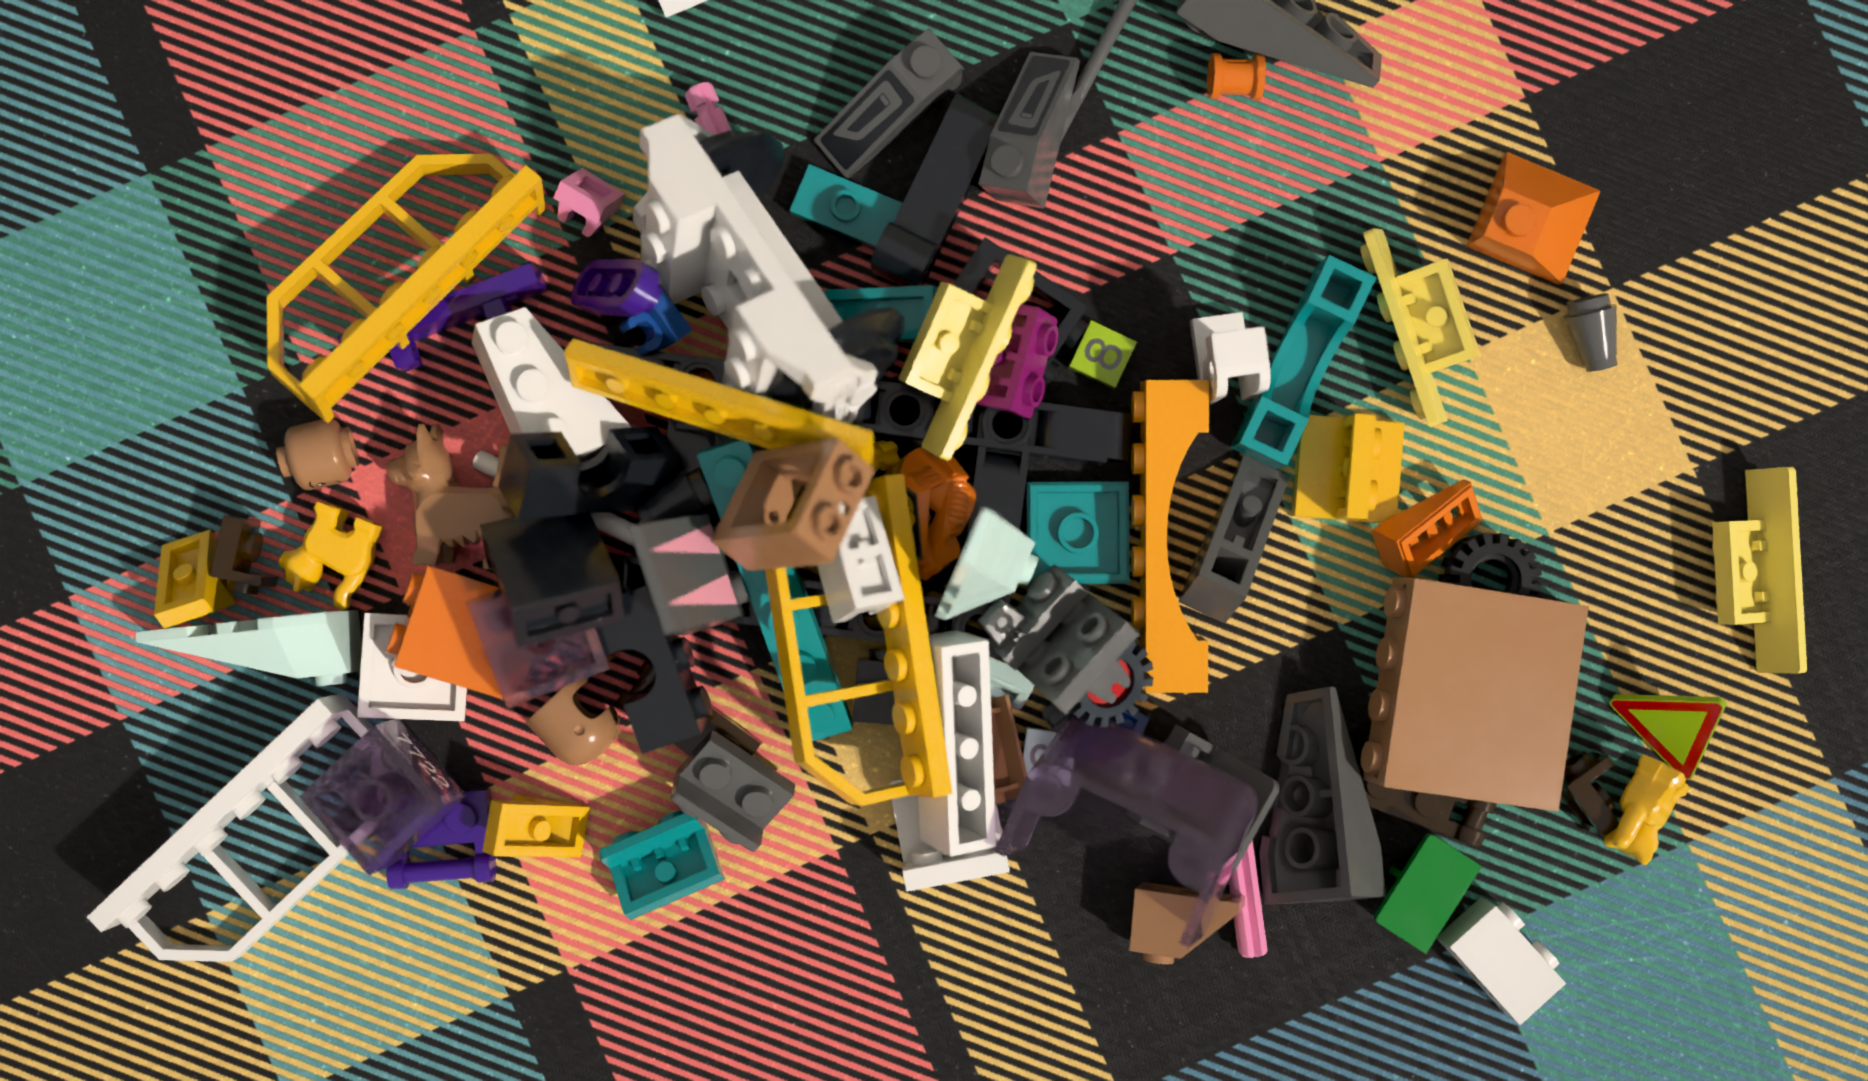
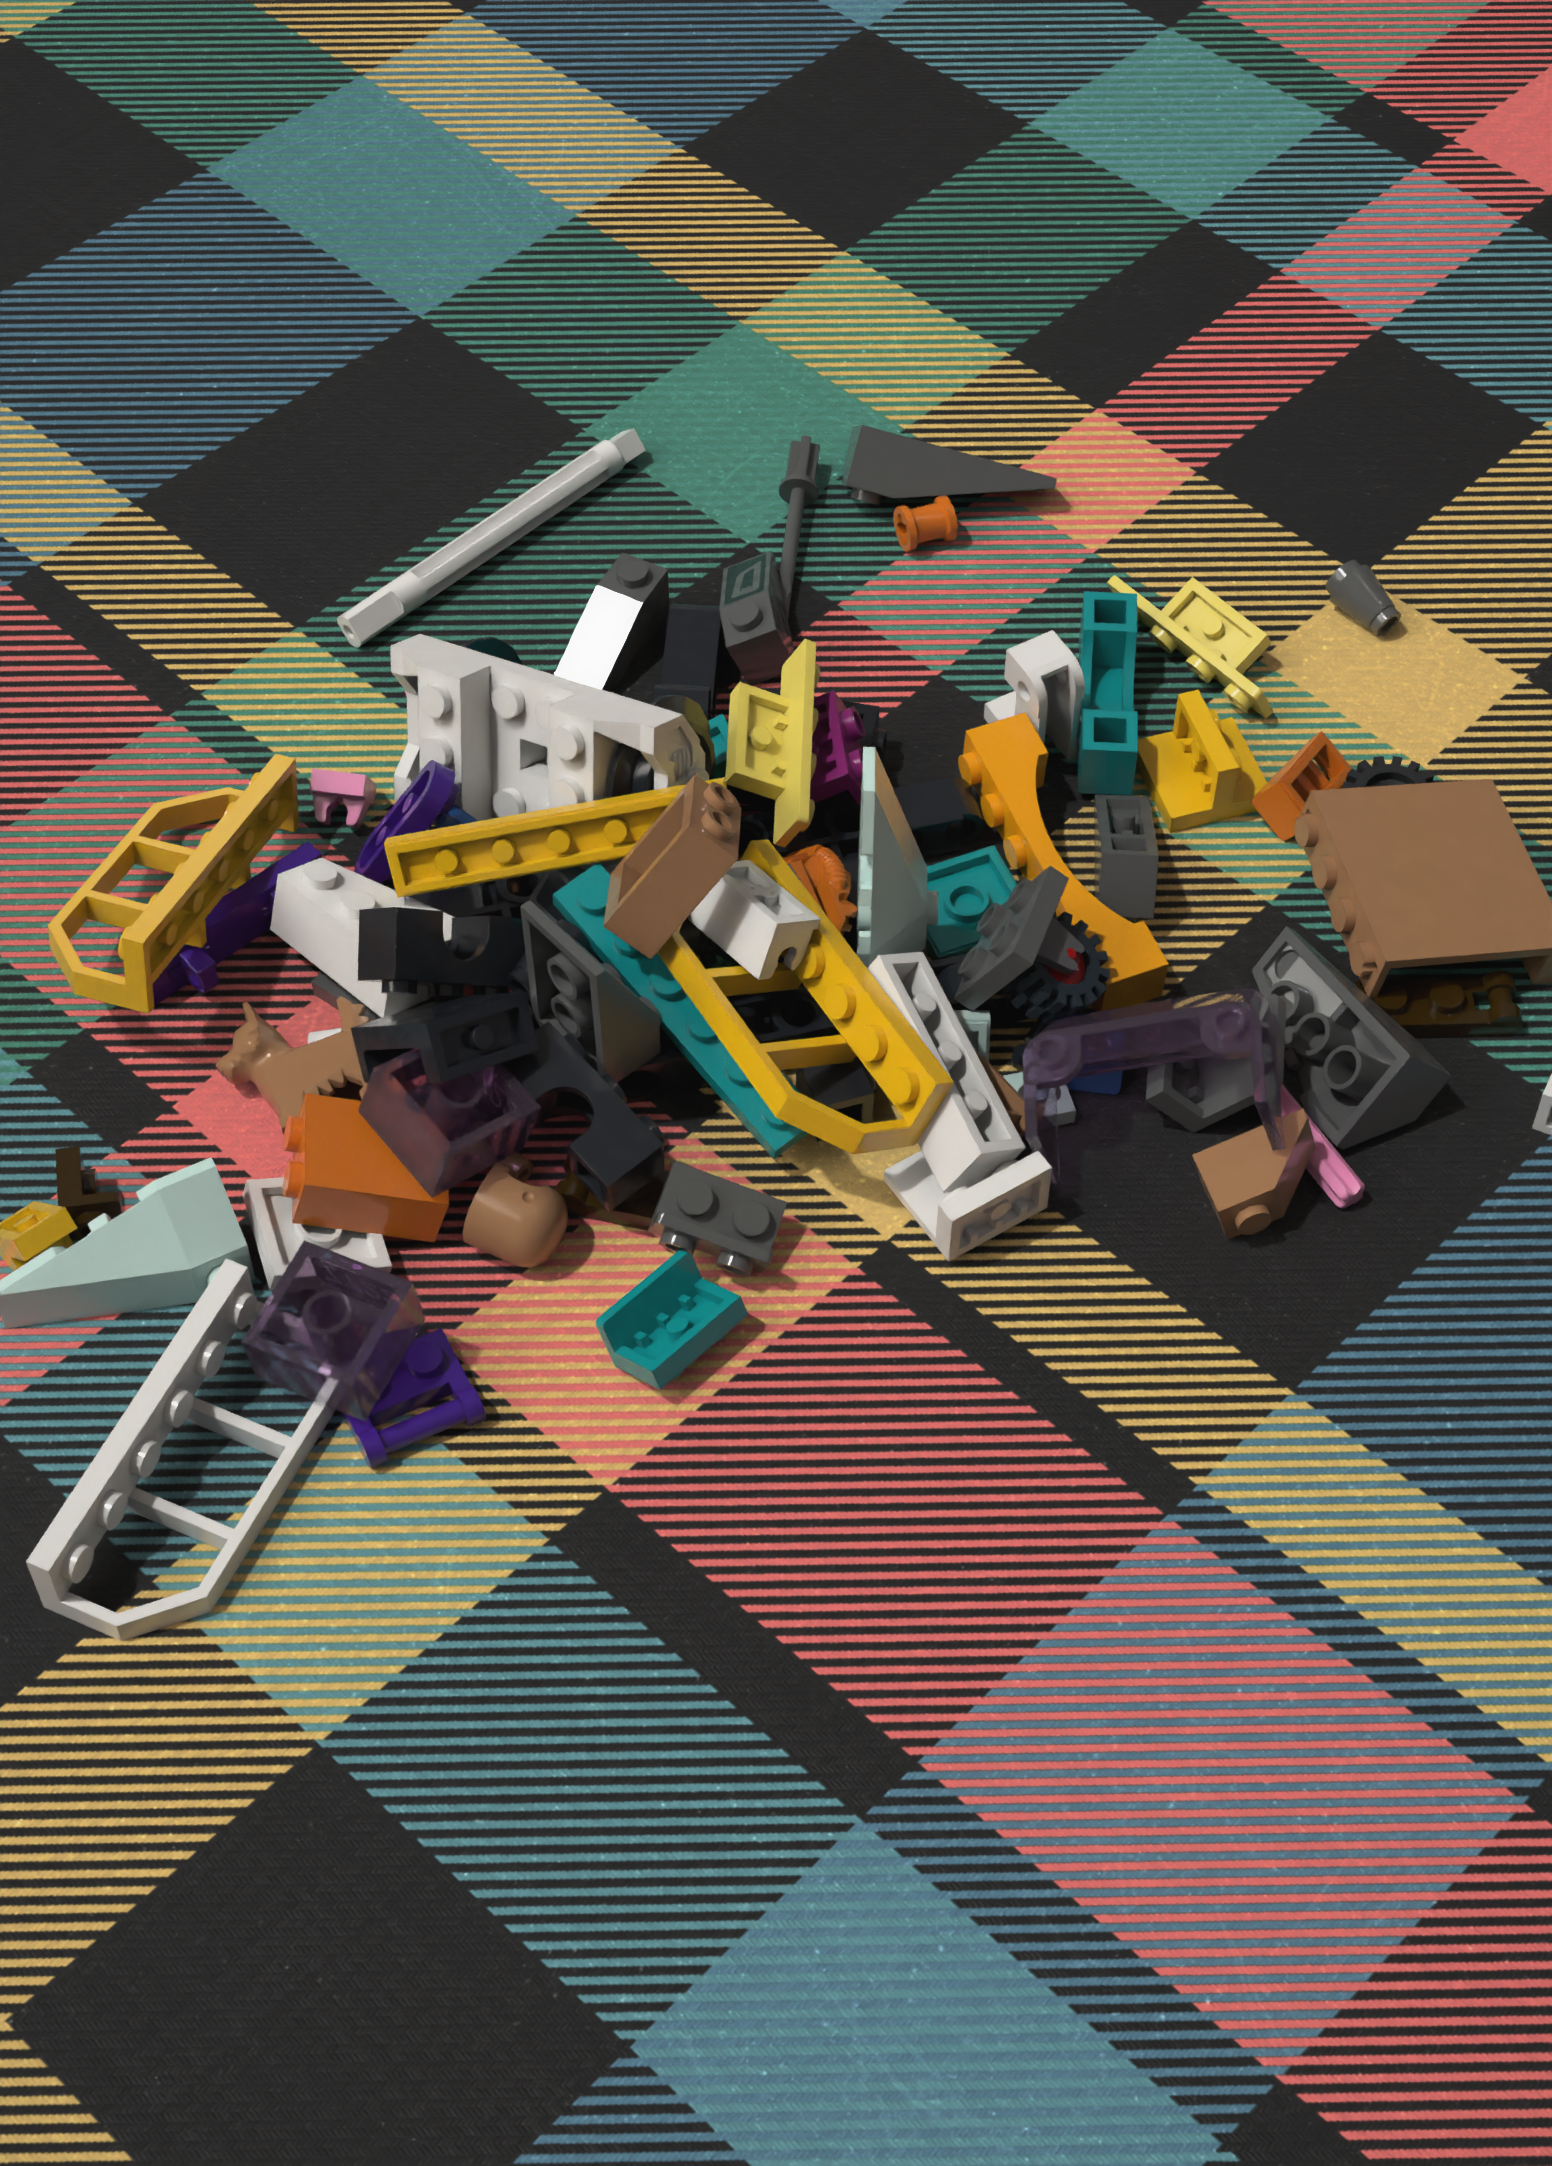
camera: 20 degrees left, 35 degrees down
(318, 454) = (137, 1082): medium nougat head -> none
(331, 545) = (177, 1150): yellow animal -> none
(535, 827) = (513, 1337): yellow slope -> none
(1021, 630) = (952, 948): dark grey hinge -> none
(1102, 354) = (913, 759): lime tile -> none
(1426, 892) = (1490, 1065): green panel -> none
(1533, 218) = (1257, 547): orange slope -> none

